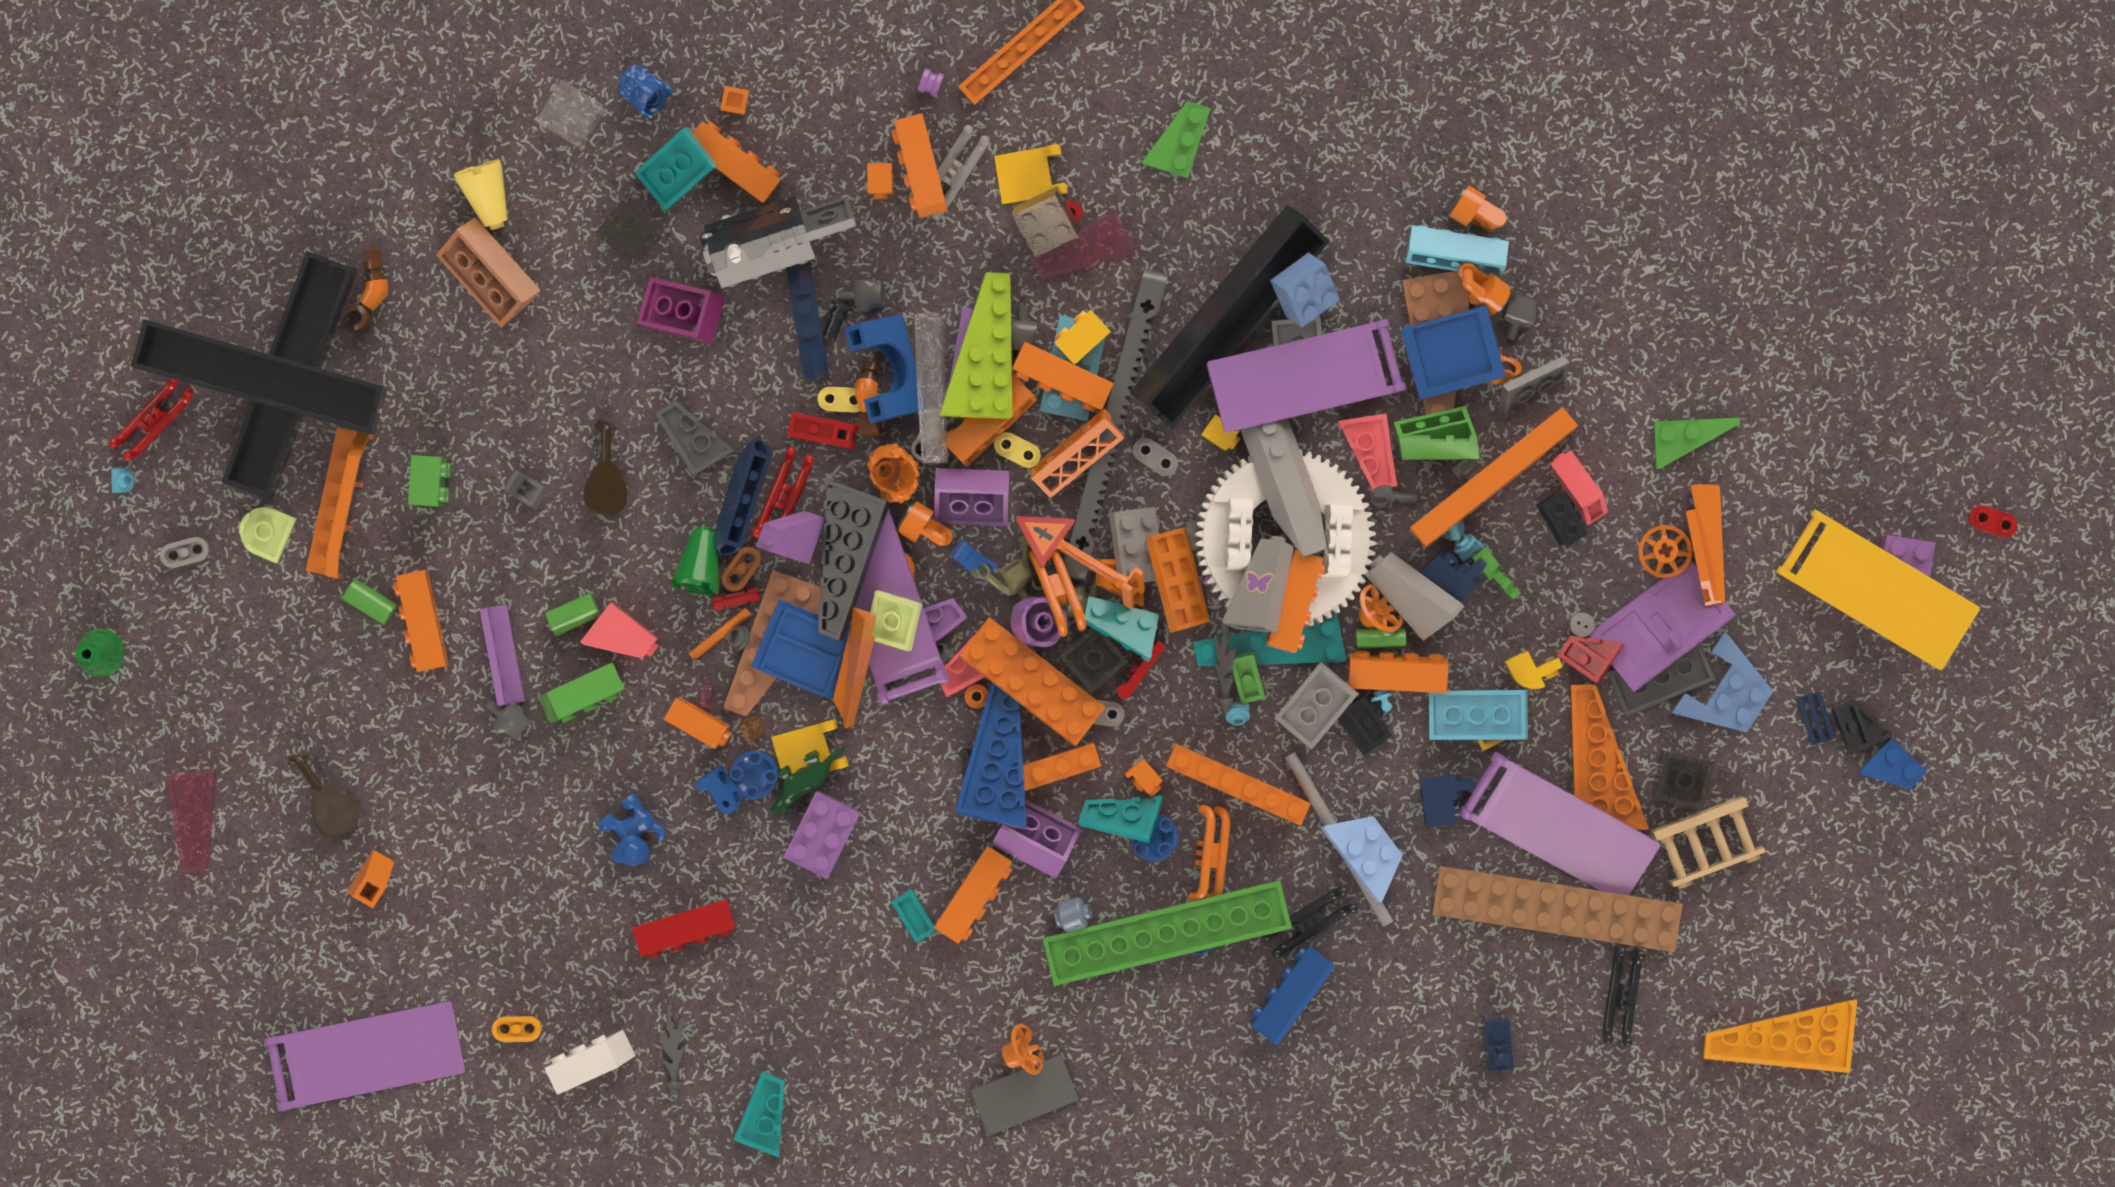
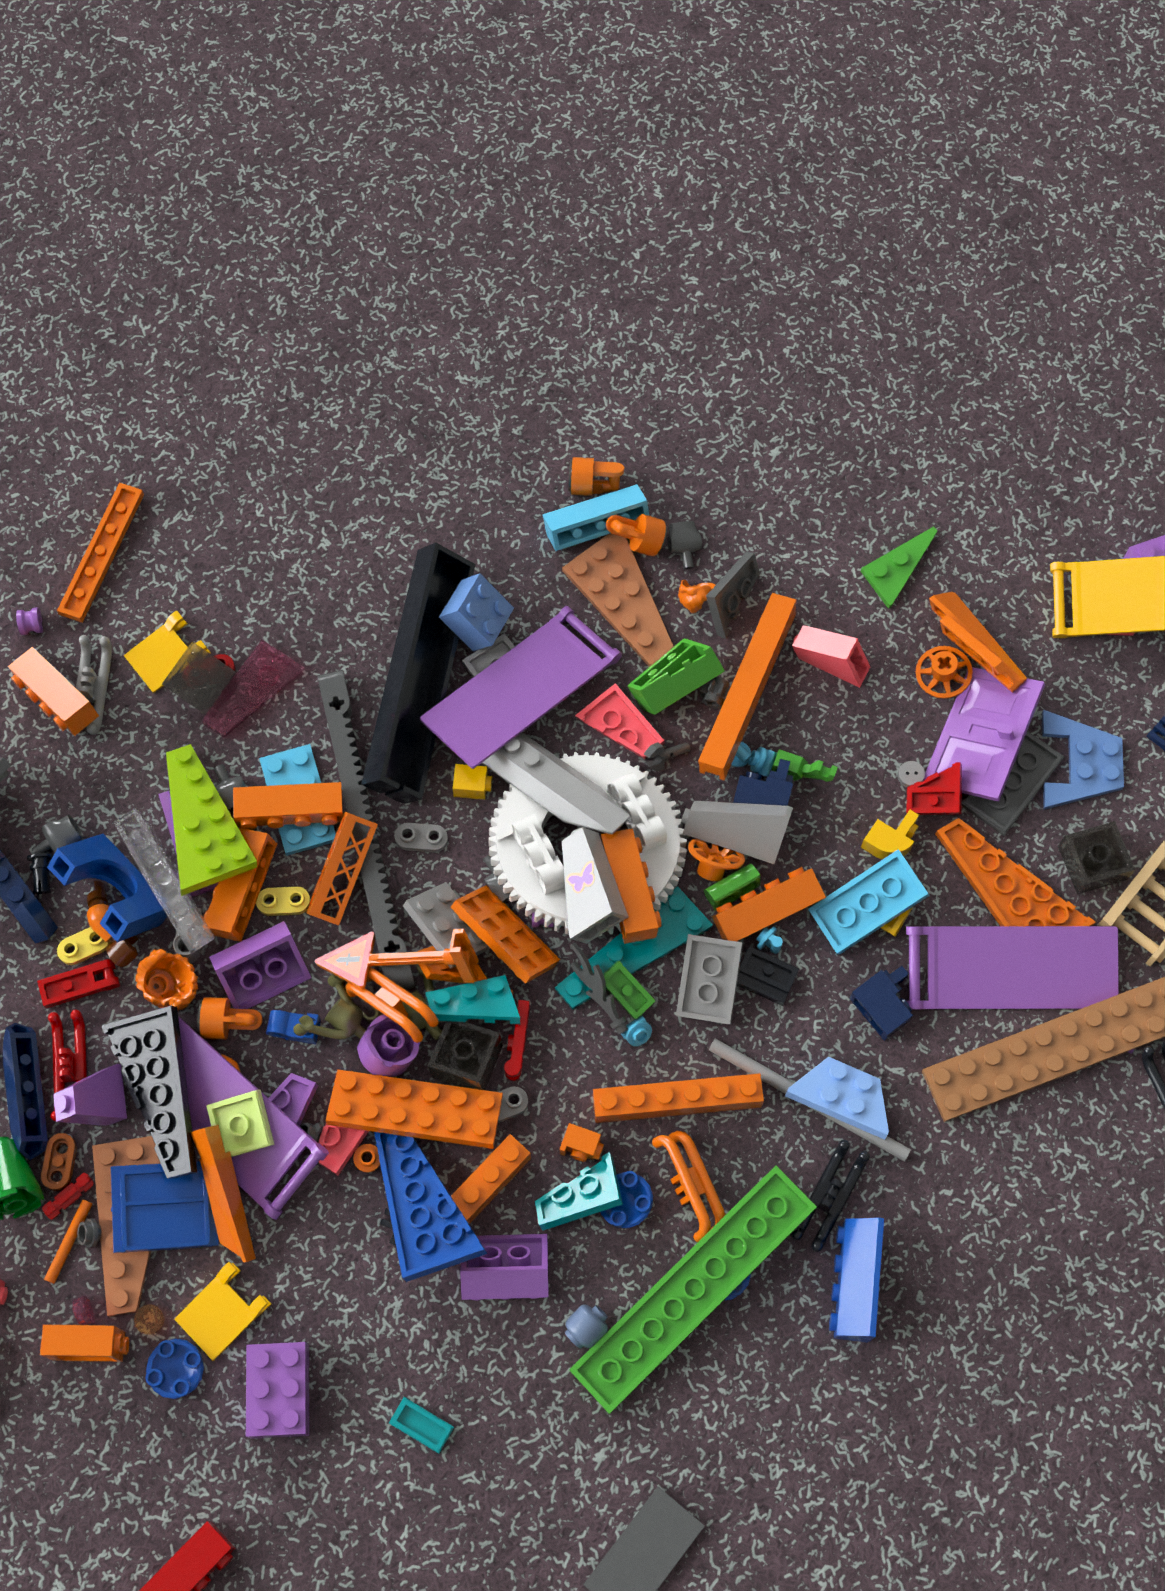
camera: 30 degrees left, 20 degrees down
(632, 848) = (75, 1523): blue animal -> none
(721, 789) = (145, 1402): blue leg -> none
(803, 780) = (228, 1343): dark green animal -> none
(880, 180) = (22, 727): orange brick -> none
(973, 893) = (471, 1364): orange brick -> none
(1020, 1052) = (613, 1508): orange wheel -> none
(1081, 337) = (289, 758): yellow brick -> none
(1180, 141) = (291, 558): bright green wing -> none
(1453, 352) = (644, 597): blue piece -> none
(1497, 1044) = (1091, 1212): dark blue hinge -> none
(1557, 514) = (825, 676): black window -> none

